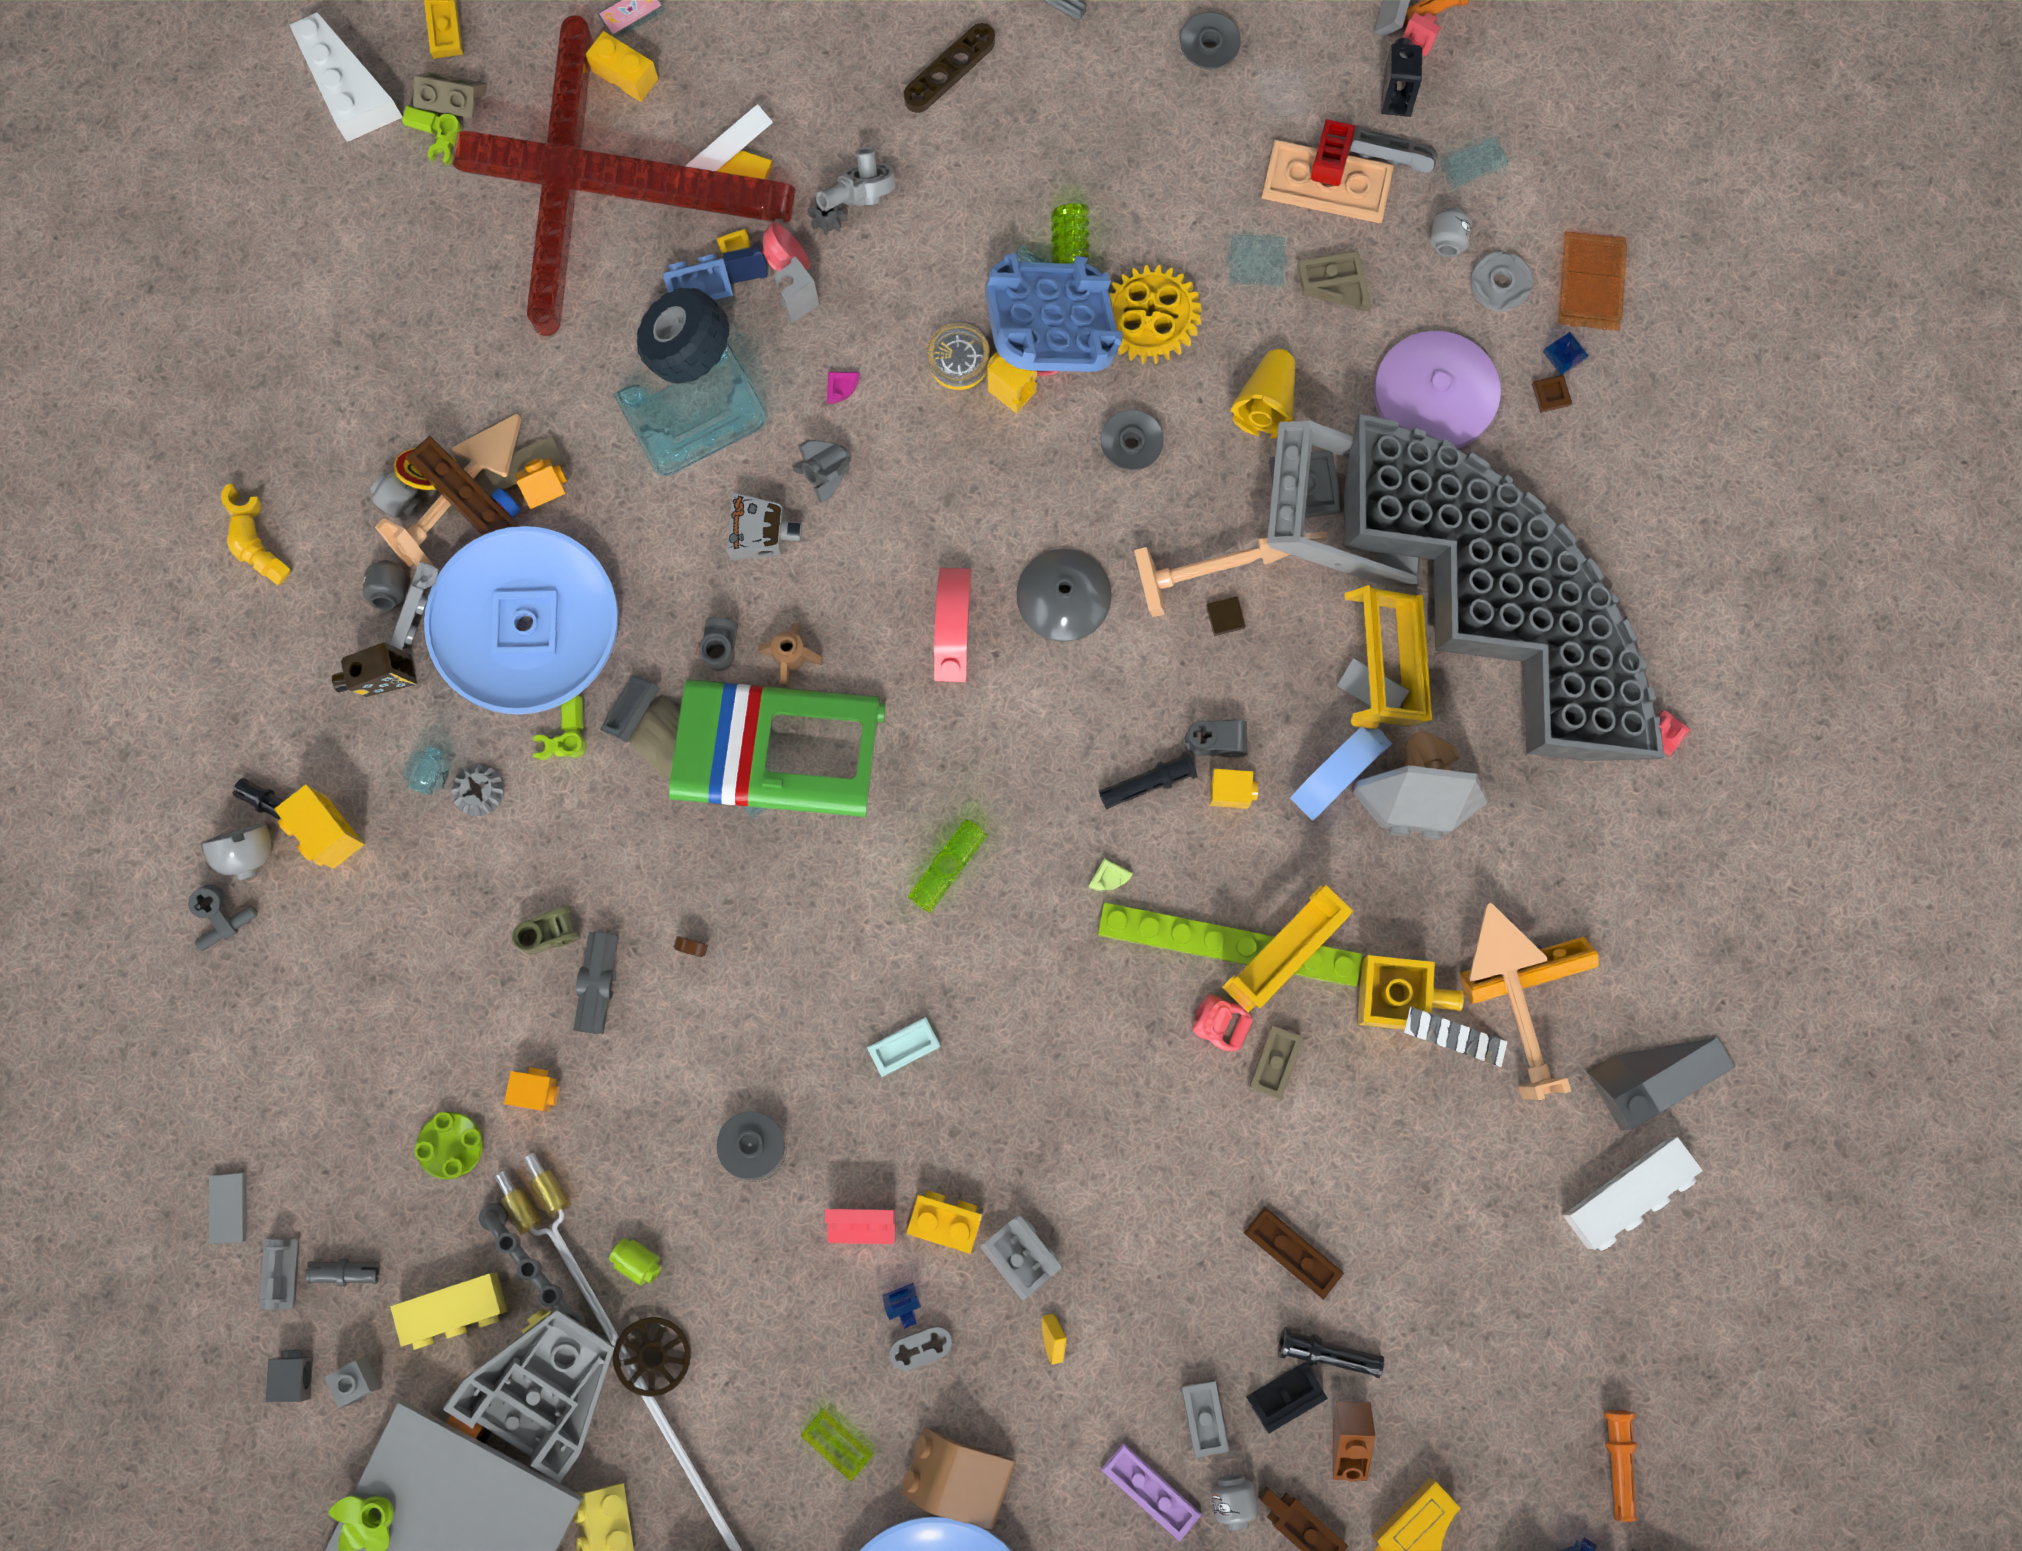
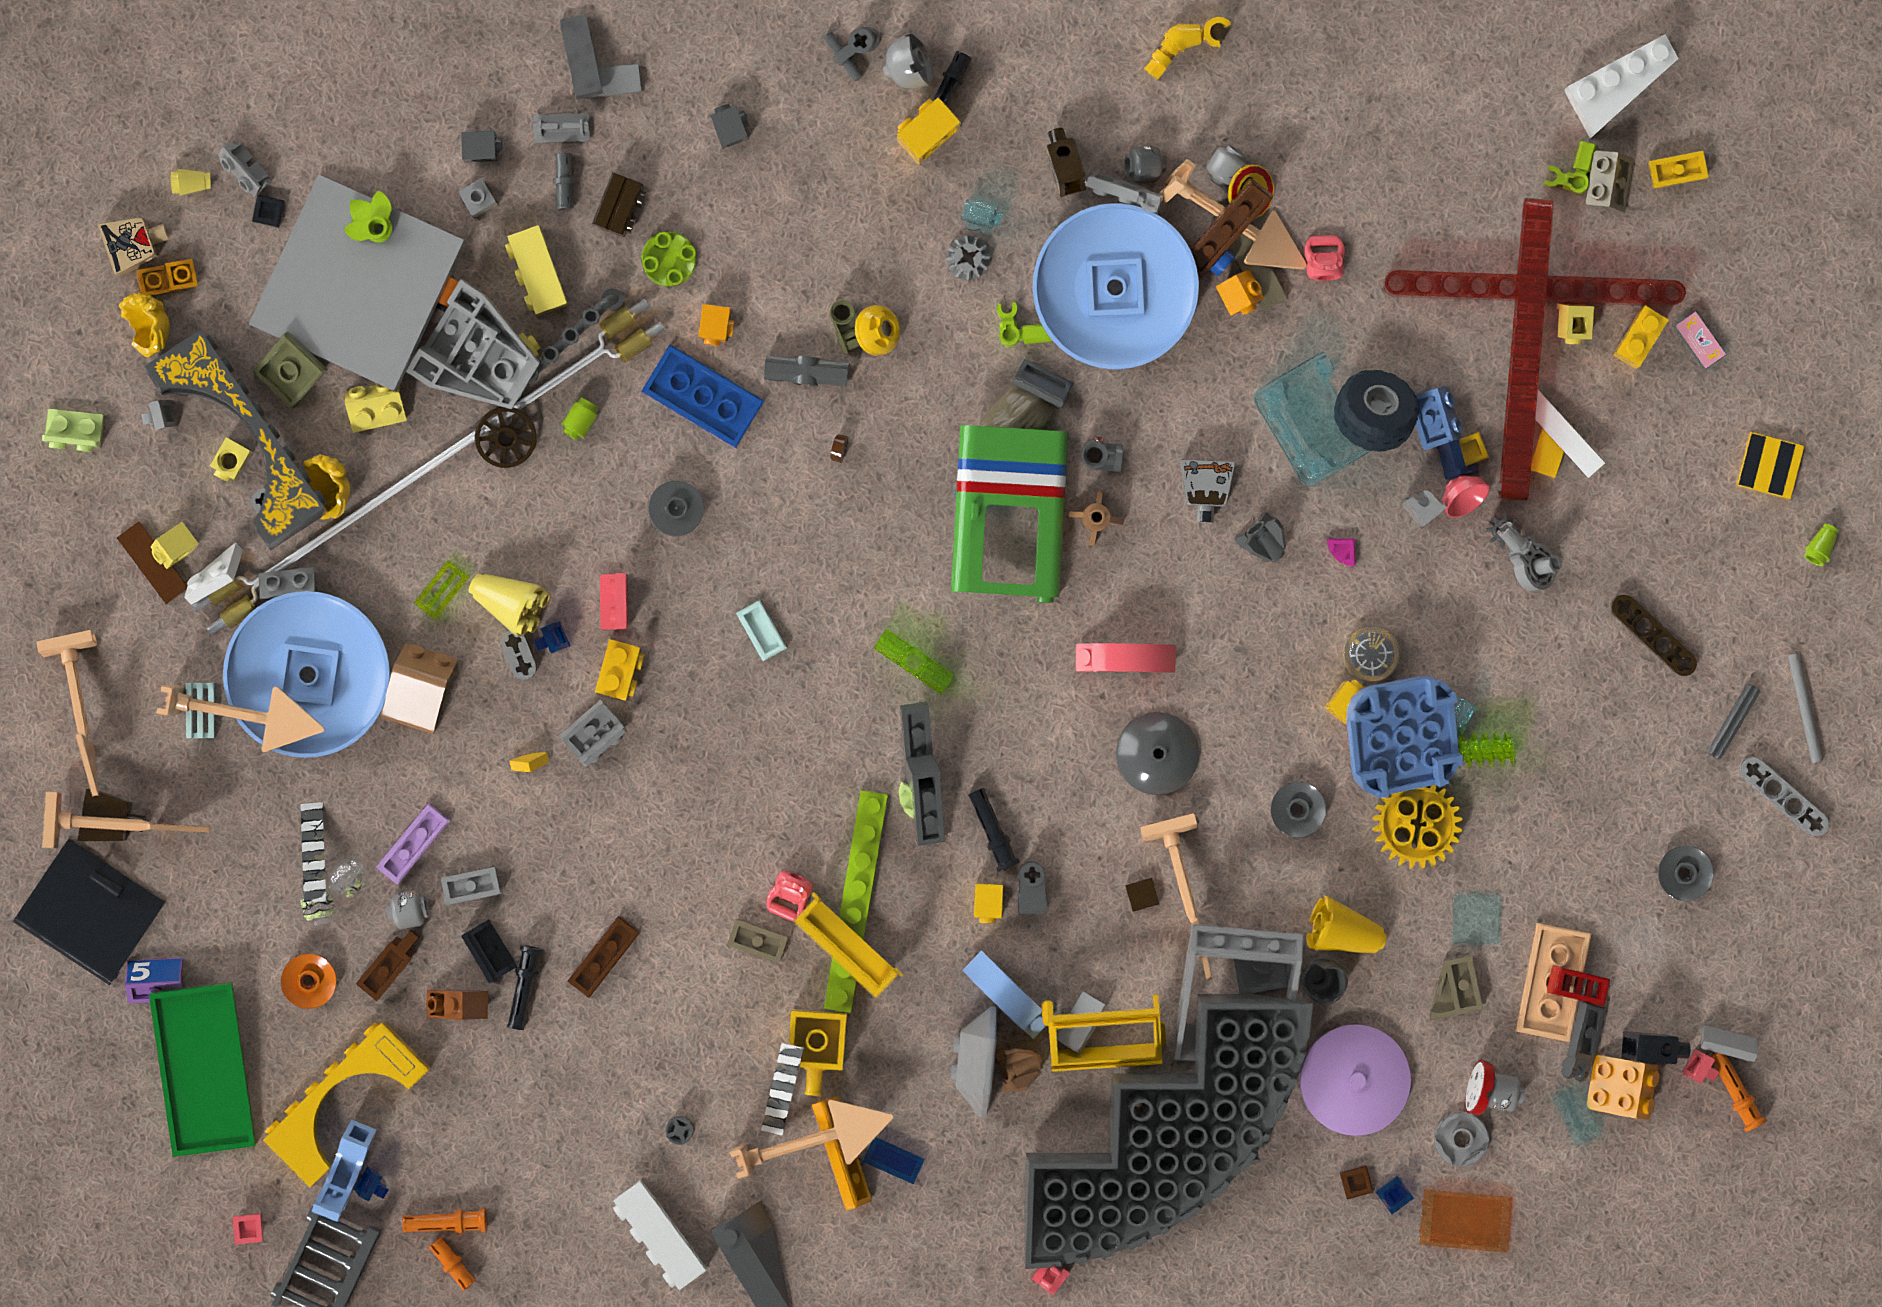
camera: 80 degrees right, 10 degrees up
(192, 1246) = (581, 56): none -> flat silver tile
(294, 1065) = (729, 125): none -> dark grey brick
(377, 1204) = (619, 204): none -> dark brown brick
(518, 393) = (1325, 265): none -> coral piece
(552, 902) = (869, 330): none -> yellow piece
(601, 132) = (1583, 320): none -> light yellow brick
(618, 1110) = (702, 396): none -> blue tile
(854, 1356) = (510, 601): none -> light yellow cone
(1079, 858) = (922, 773): none -> dark grey bracket
(1330, 410) = (1324, 981): none -> dark grey hair
(1444, 113) = (1622, 1087): none -> light orange bracket
(1448, 253) = (1479, 1084): none -> tile
(1510, 1162) = (675, 1131): none -> dark grey wheel
(1537, 907) = (893, 1160): none -> clear blue tile
(1674, 1457) = (452, 1264): none -> orange pin

